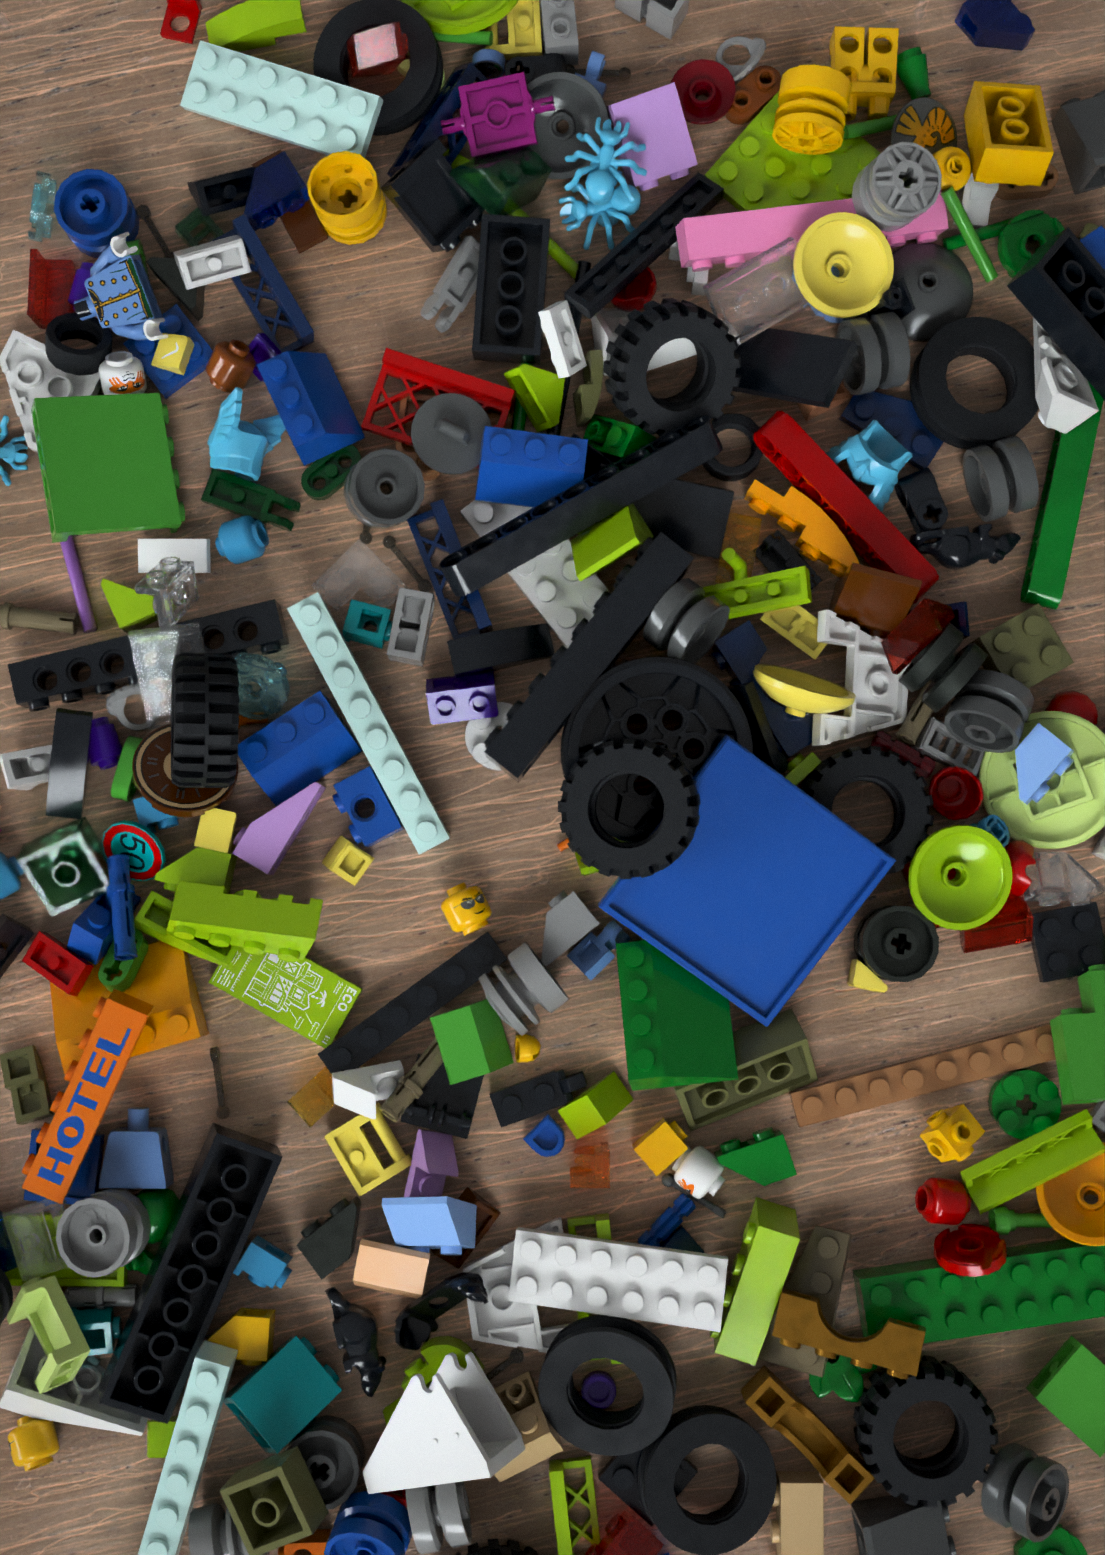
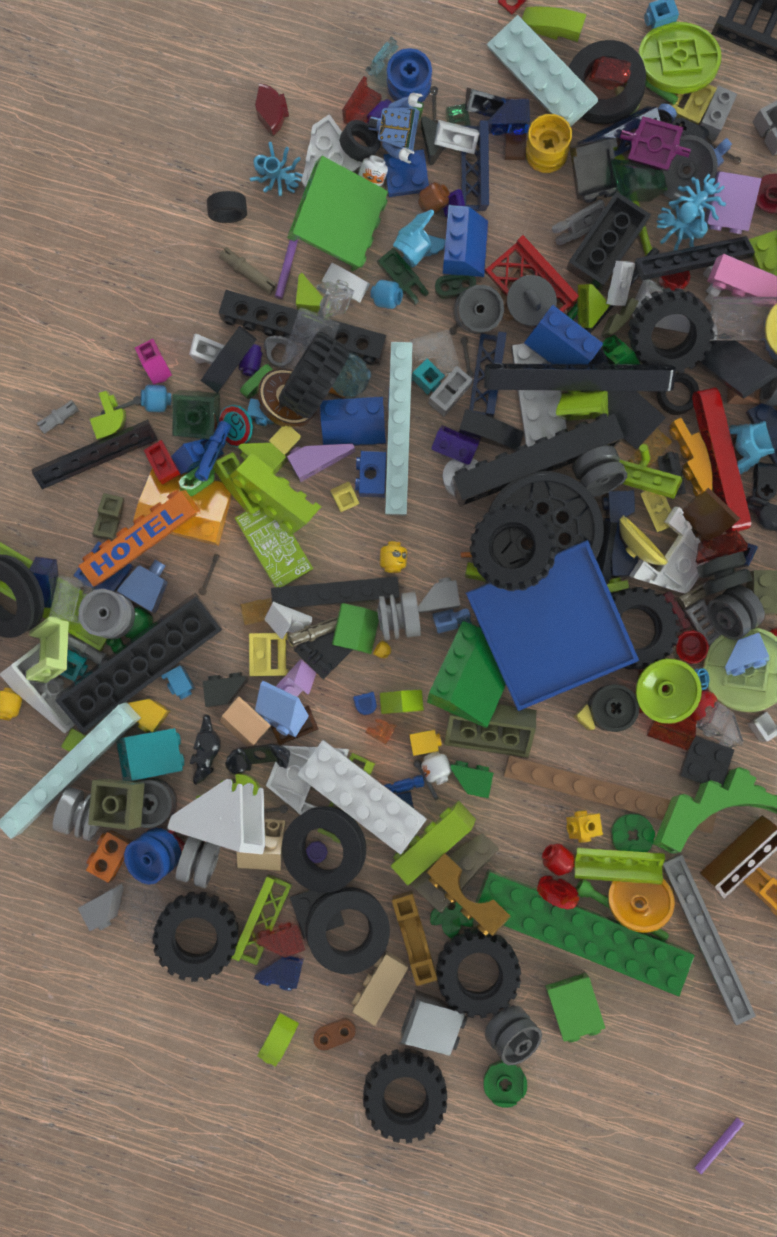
camera: 30 degrees right, 0 degrees up
(173, 353) = (407, 174): light yellow slope -> none
(535, 1095) = (372, 678): black hinge -> none

